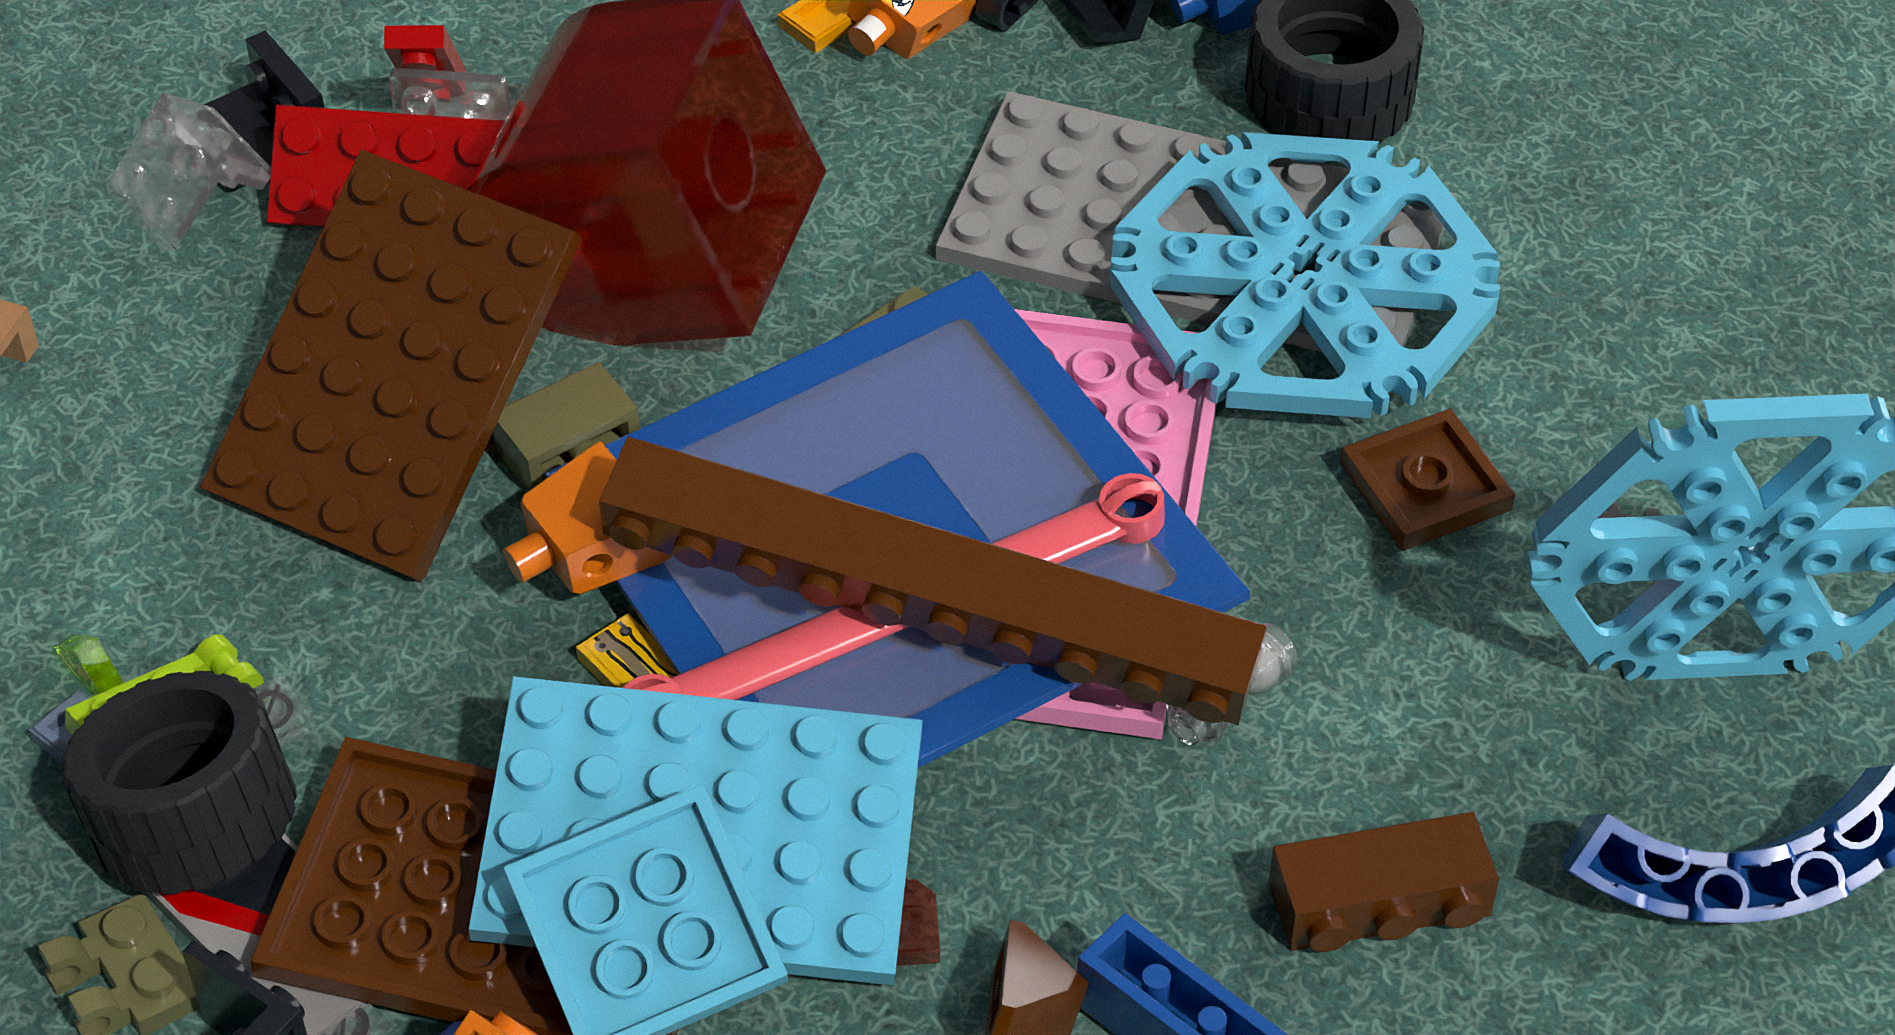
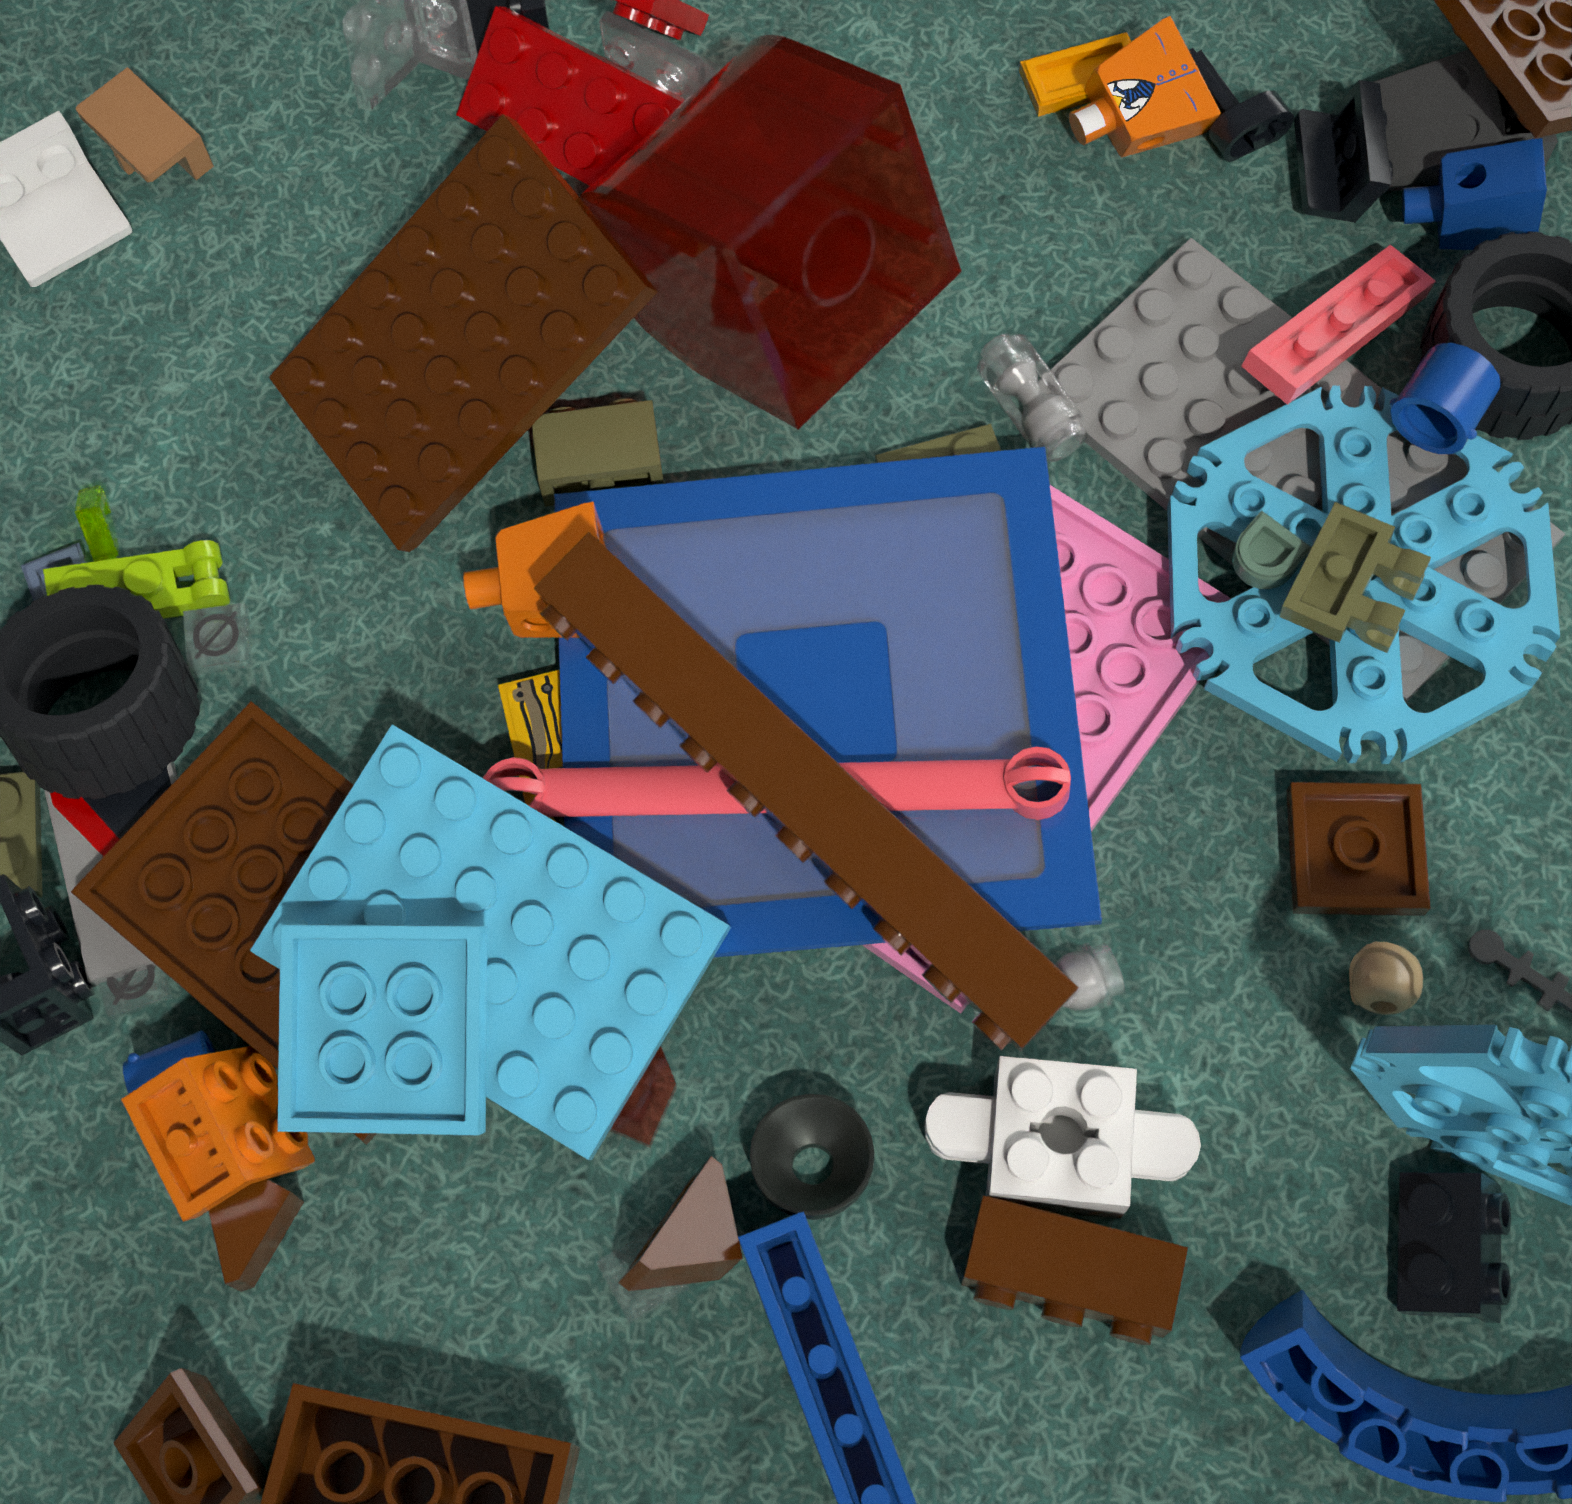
camera: 30 degrees right, 20 degrees up
(911, 236) = (1048, 419): none -> clear piece
(1098, 869) = (815, 1123): none -> pearl dark grey piece
(1175, 103) = (1337, 324): none -> coral plate
(1222, 277) = (1268, 553): none -> sand green tile
(1293, 263) = (1338, 571): none -> olive plate
(1302, 111) = (1445, 398): none -> blue piece
(1349, 786) = (1062, 1136): none -> white brick
(1503, 561) = (1385, 978): none -> tan piece
(1685, 735) = (1452, 1246): none -> black bracket

